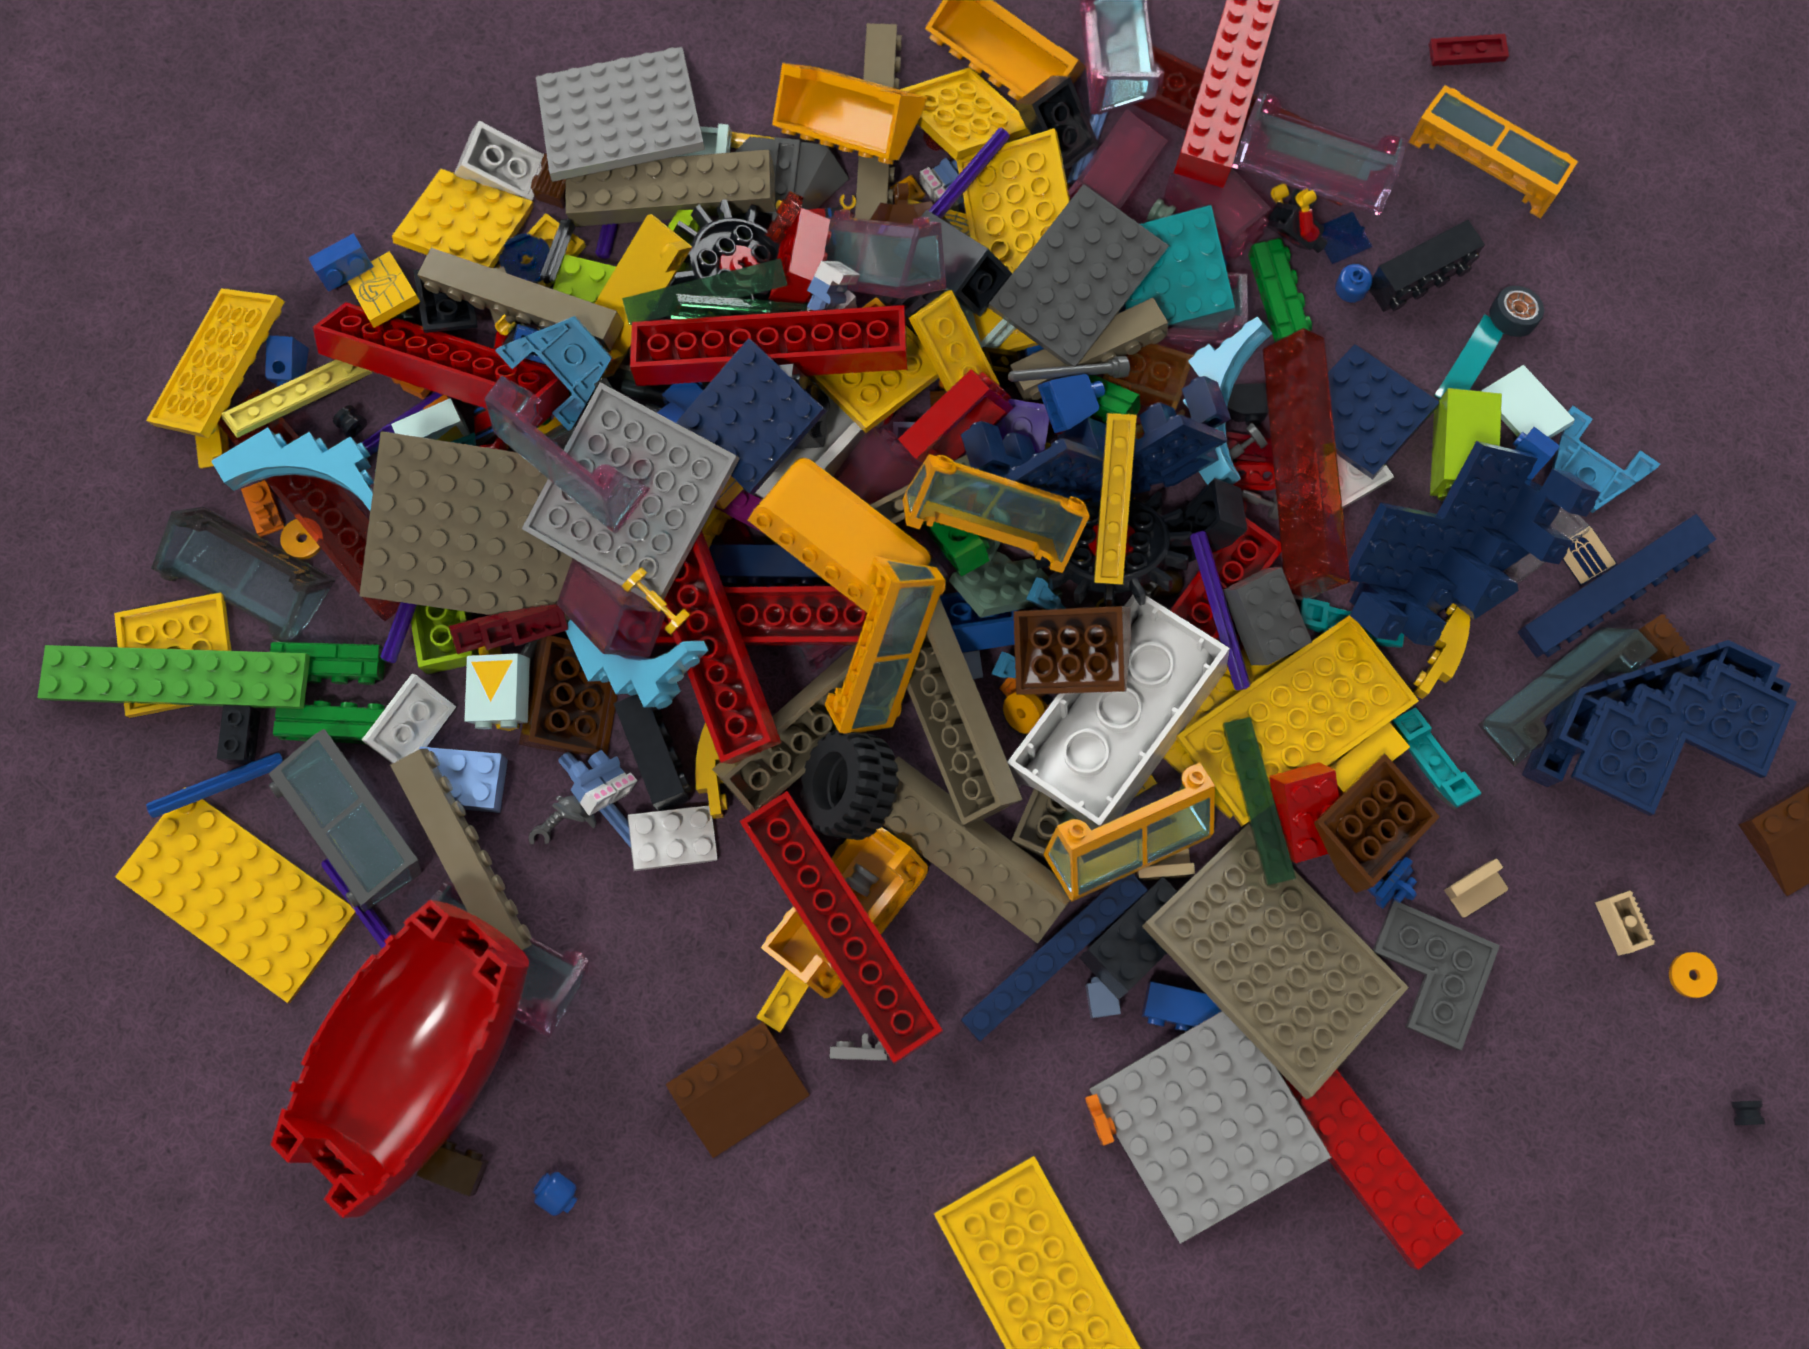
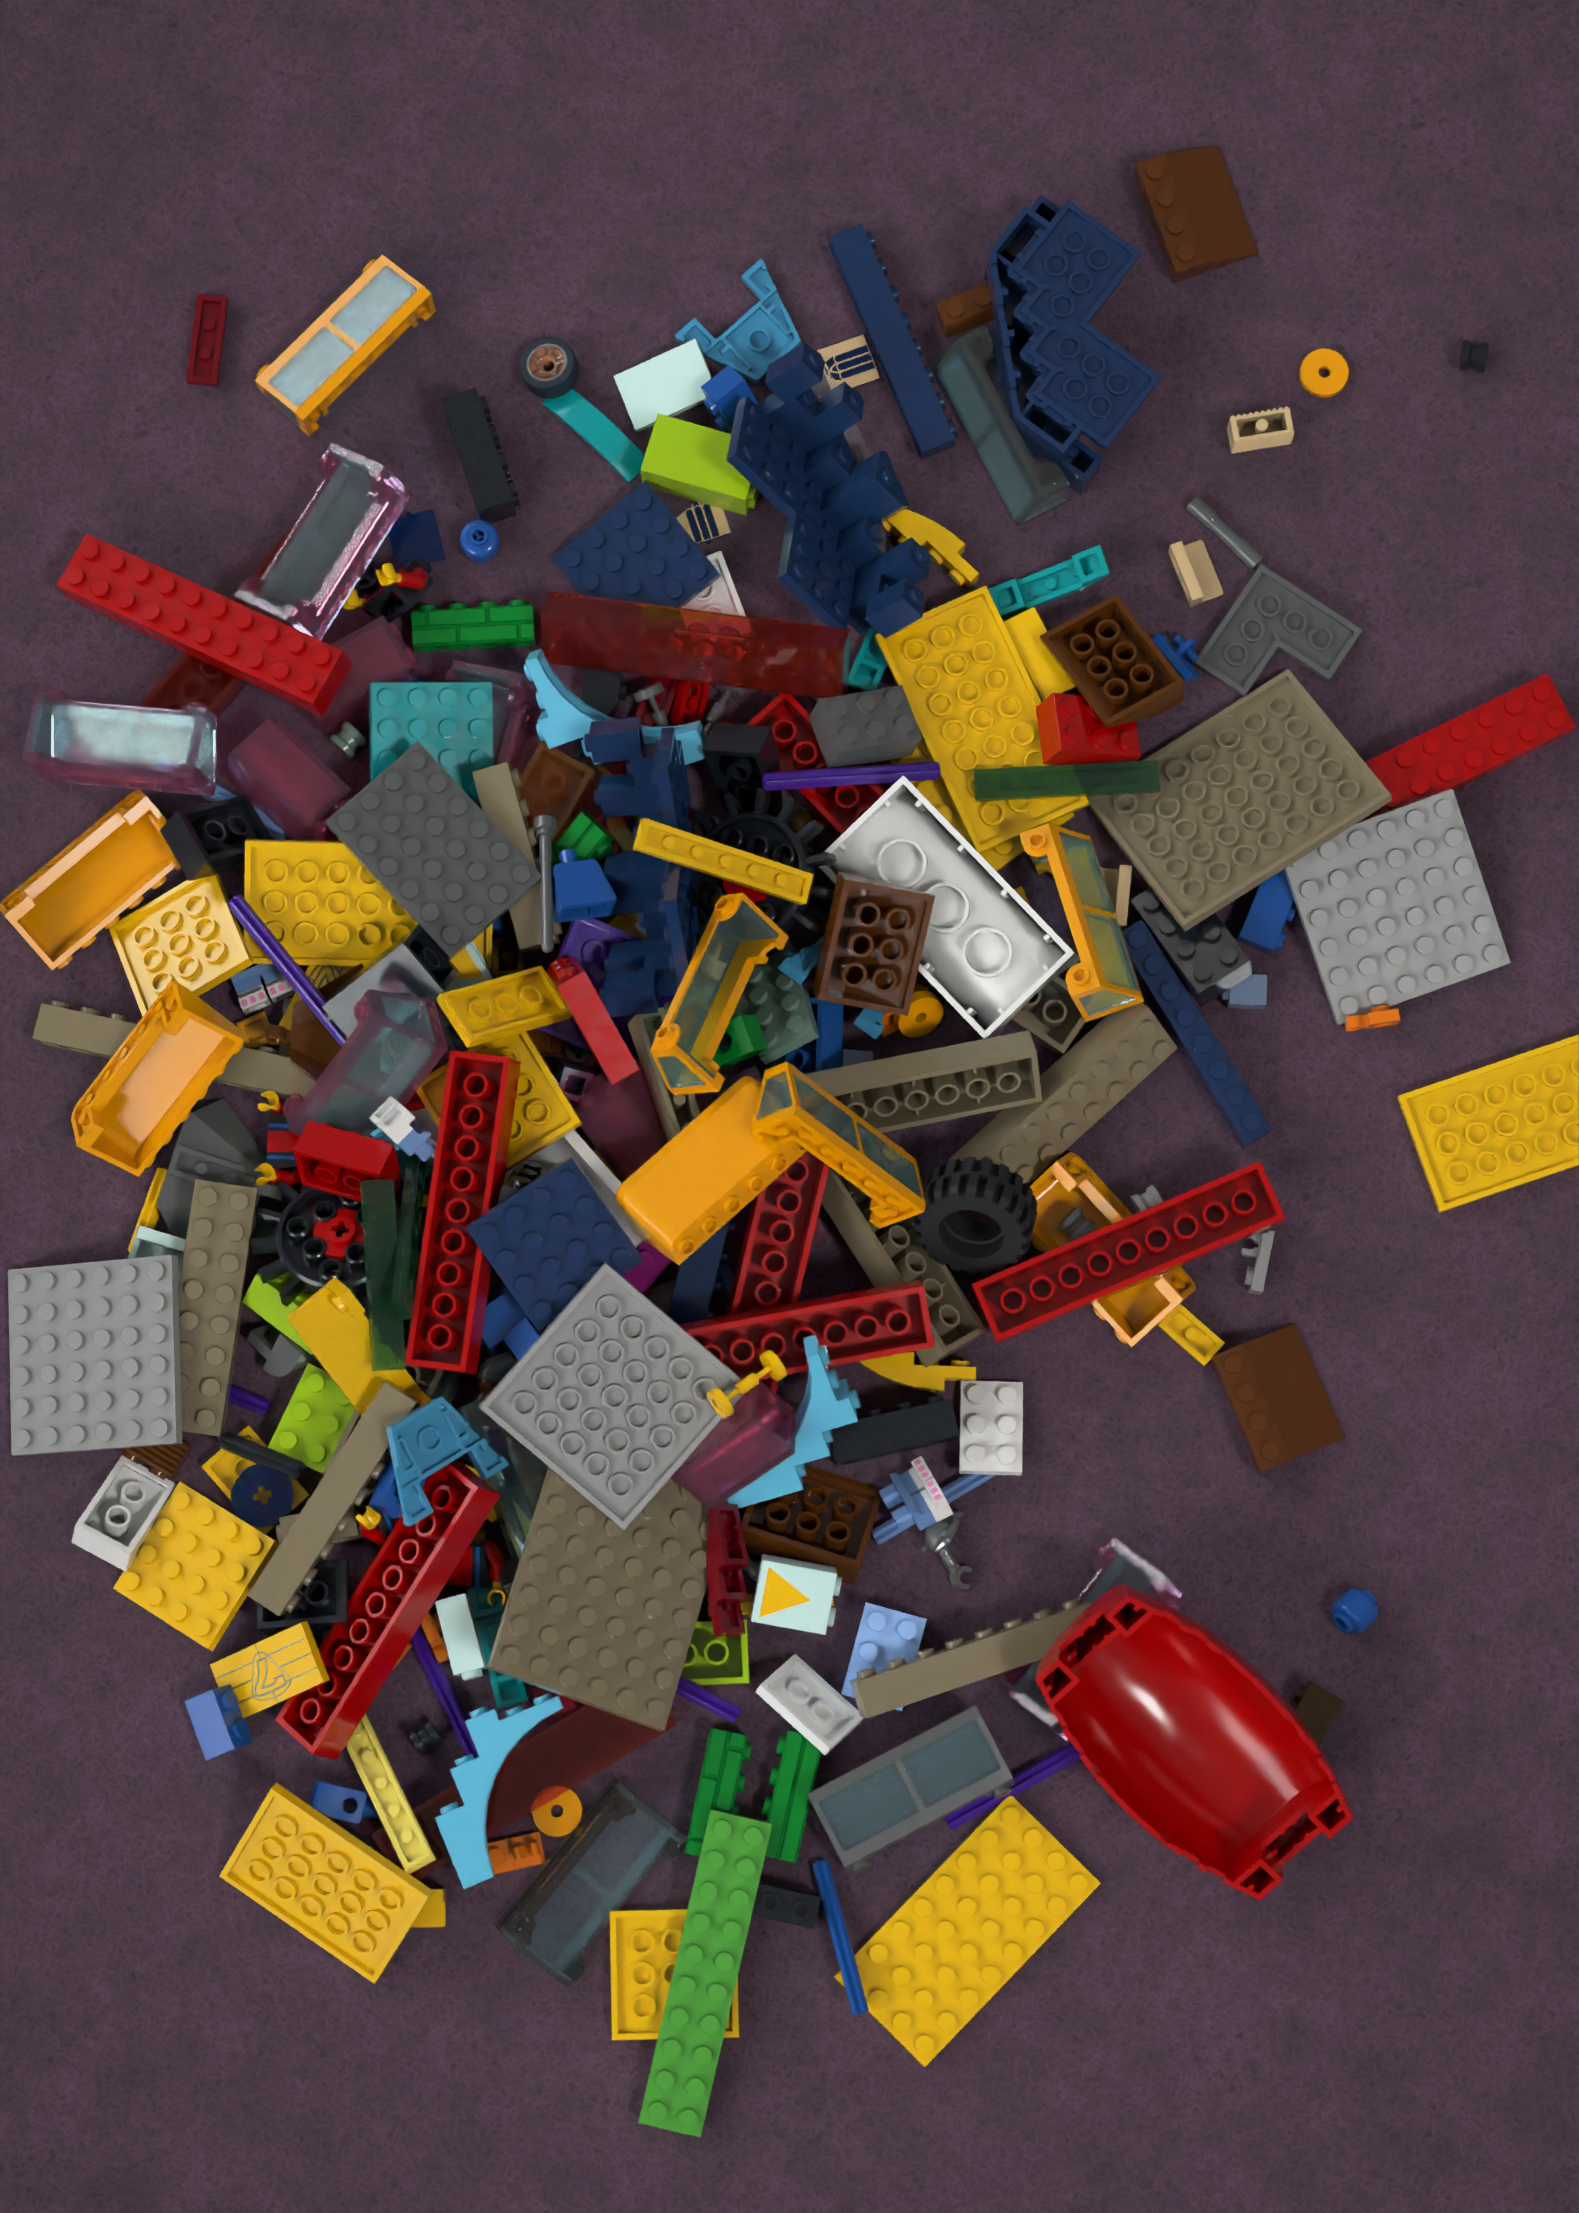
camera: 80 degrees left, 5 degrees up
(603, 493) = (511, 1514): windscreen -> none
(786, 215) = (290, 1173): clear red plate -> none
(896, 941) = (1147, 1199): none -> light grey wheel
(1414, 461) = (704, 522): none -> piece
(1528, 894) = (1211, 520): none -> dark grey piece

